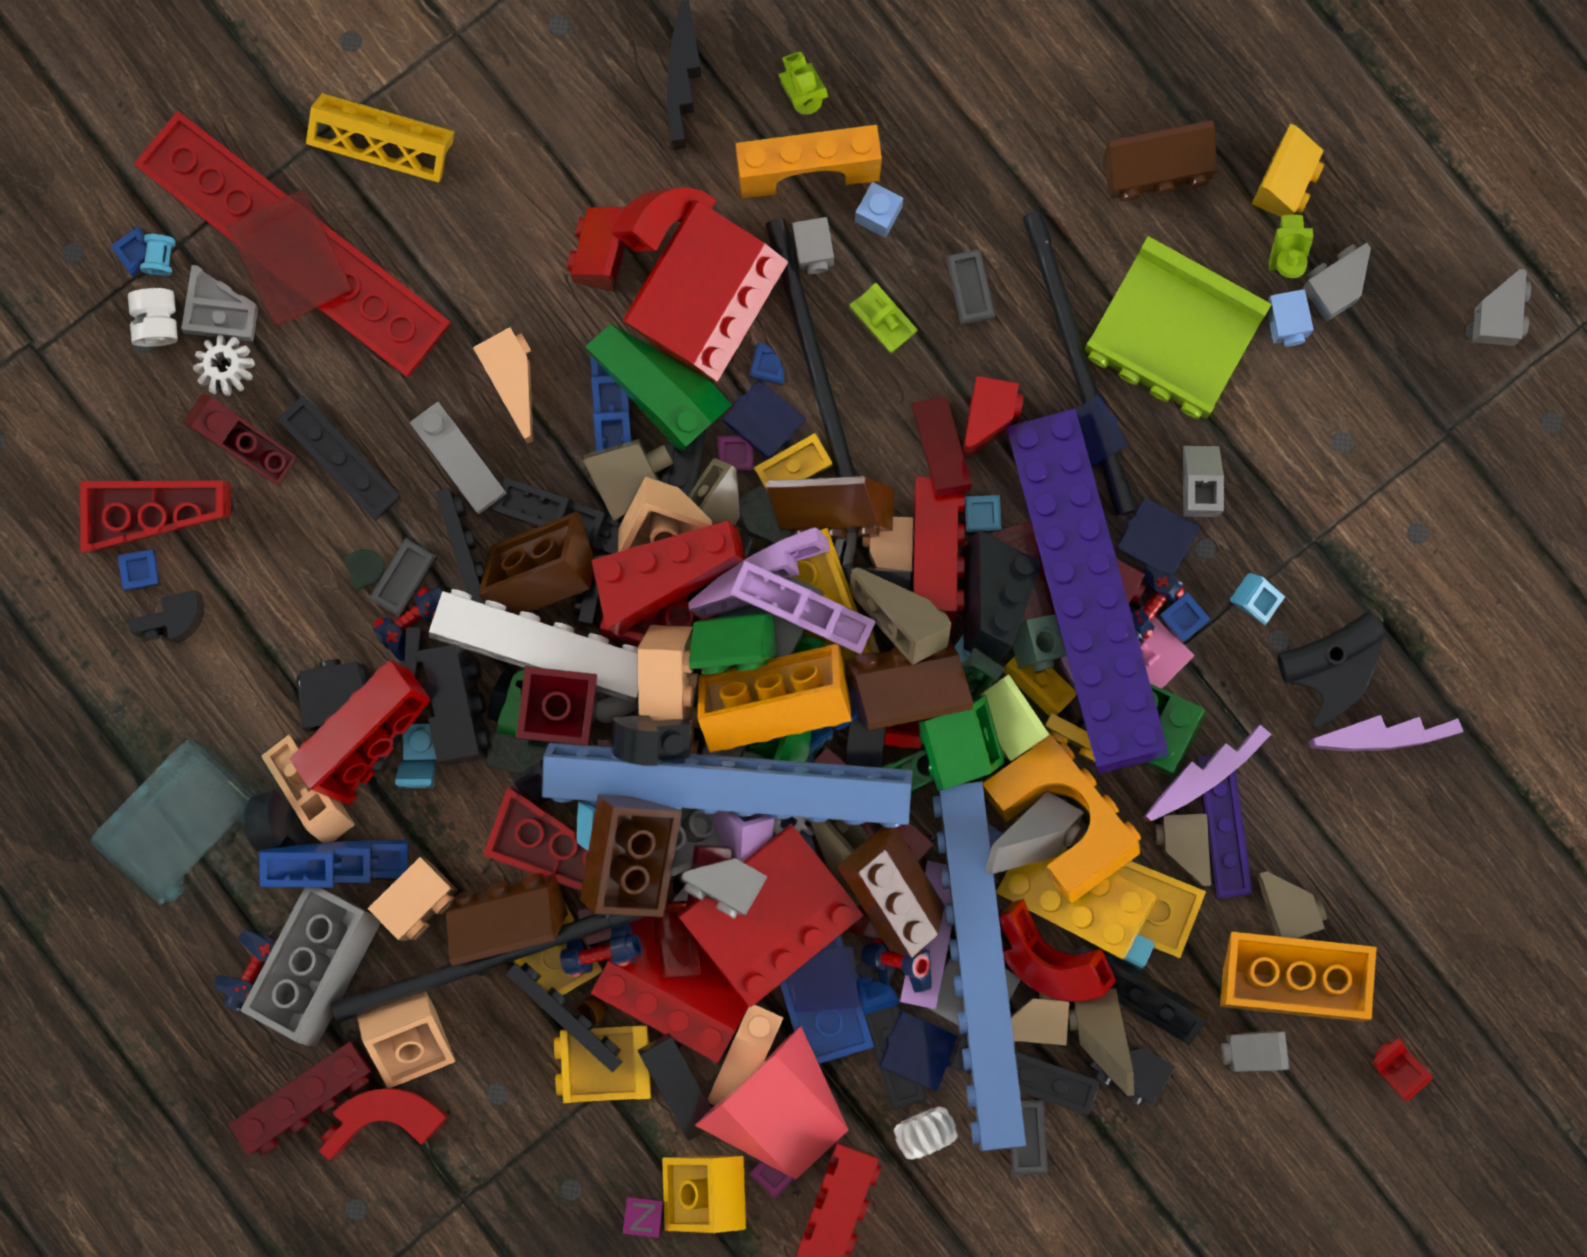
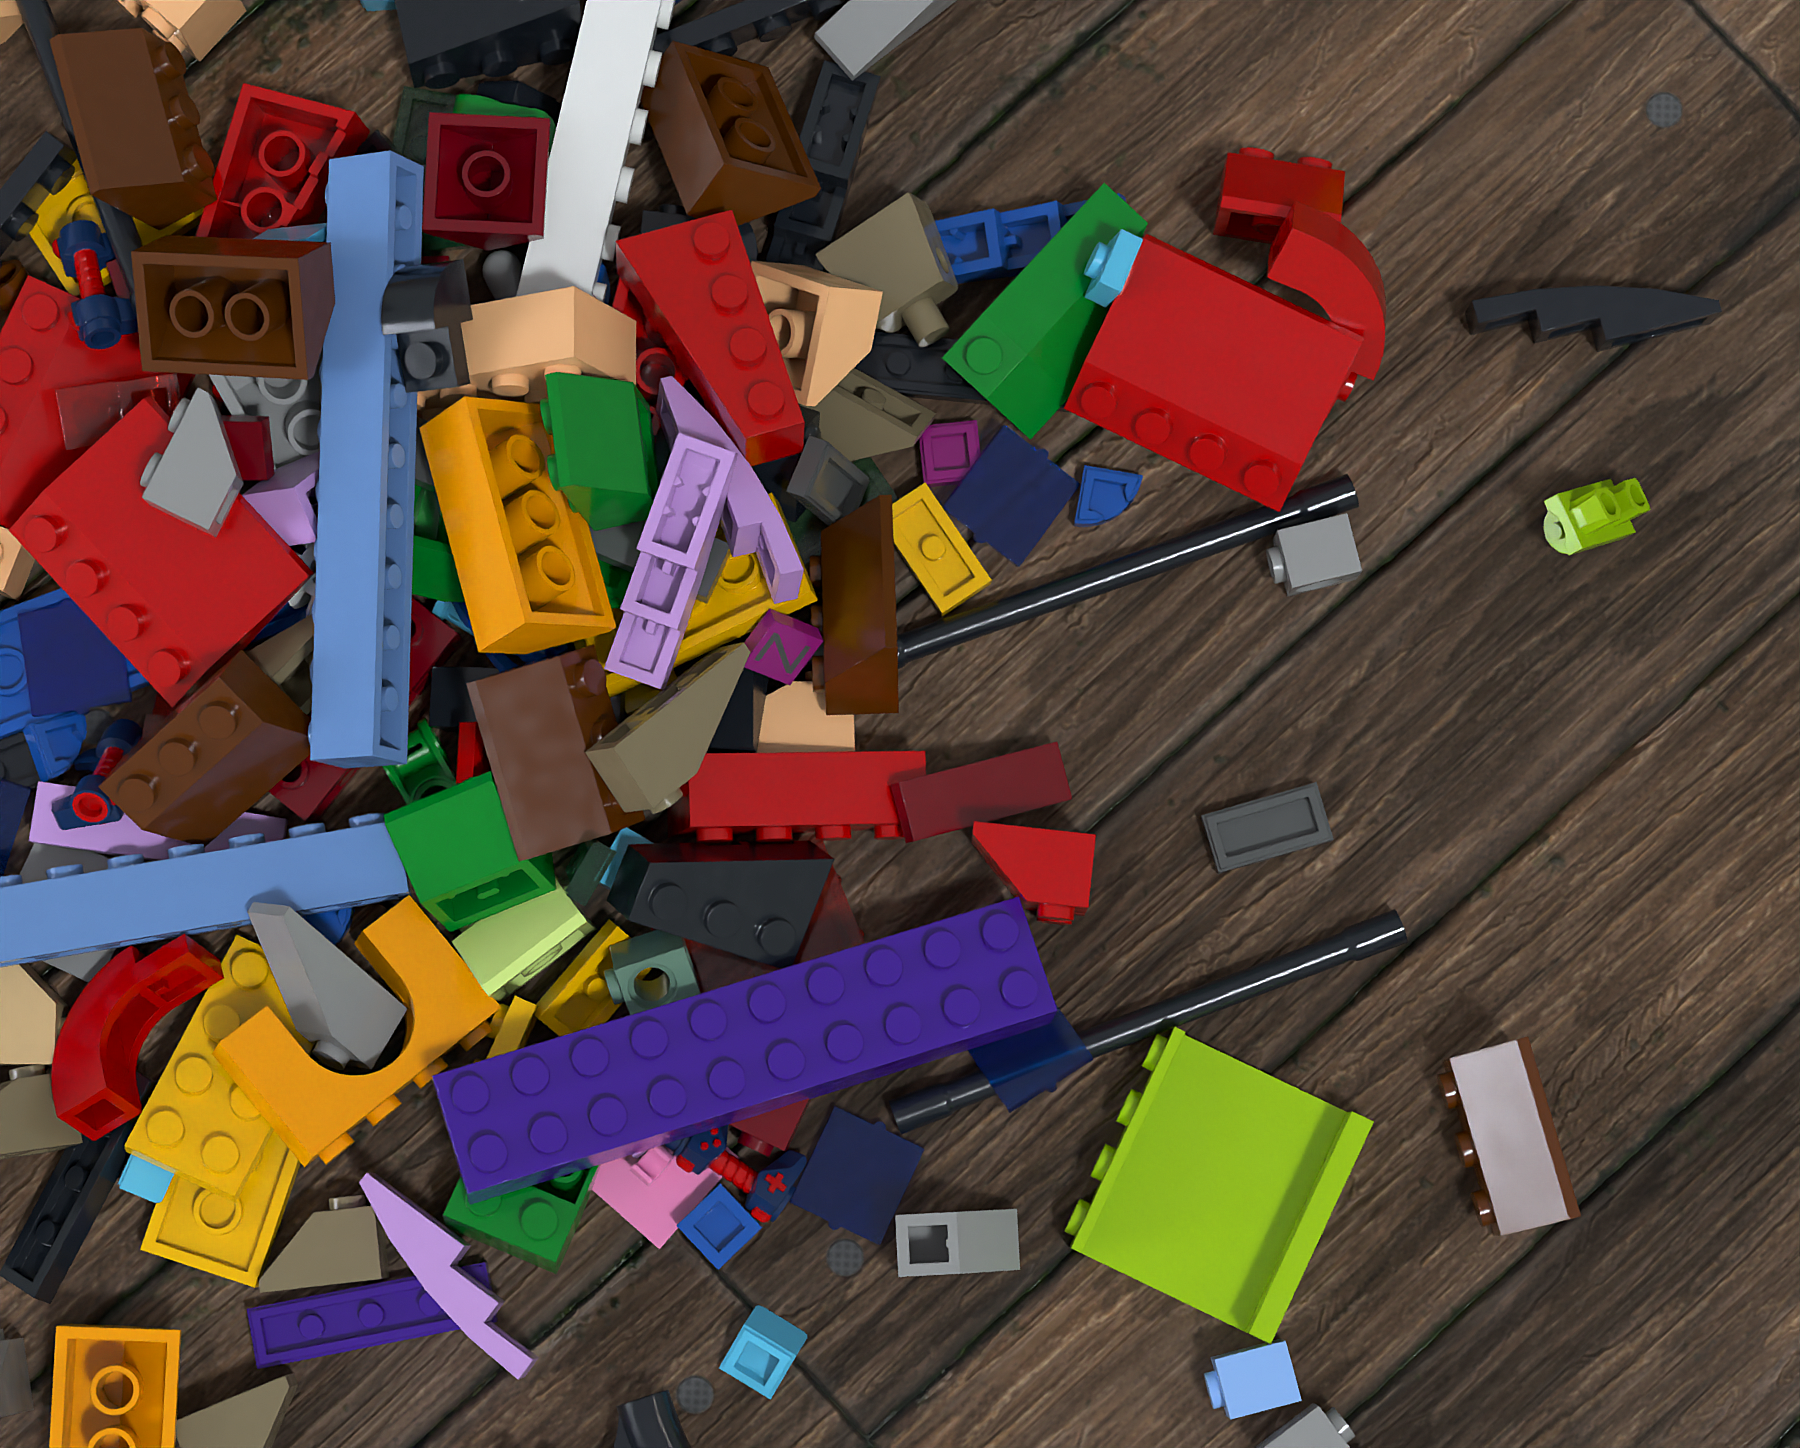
camera: 90 degrees right, 0 degrees up
(510, 373) = (1051, 73): light nougat slope -> none
(640, 342) = (1110, 267): none -> medium azure plate
(755, 519) = (827, 482): none -> dark grey tile
(847, 151) = (1441, 459): light orange arch -> none
(852, 550) = (781, 646): none -> magenta tile
(878, 210) = (1384, 660): light blue brick -> none
(883, 318) = (1196, 680): lime hips -> none
(982, 513) = (876, 873): medium azure tile -> none
(1289, 174) = (1506, 1364): yellow slope -> none
(1291, 247) = (1372, 1372): lime hips -> none

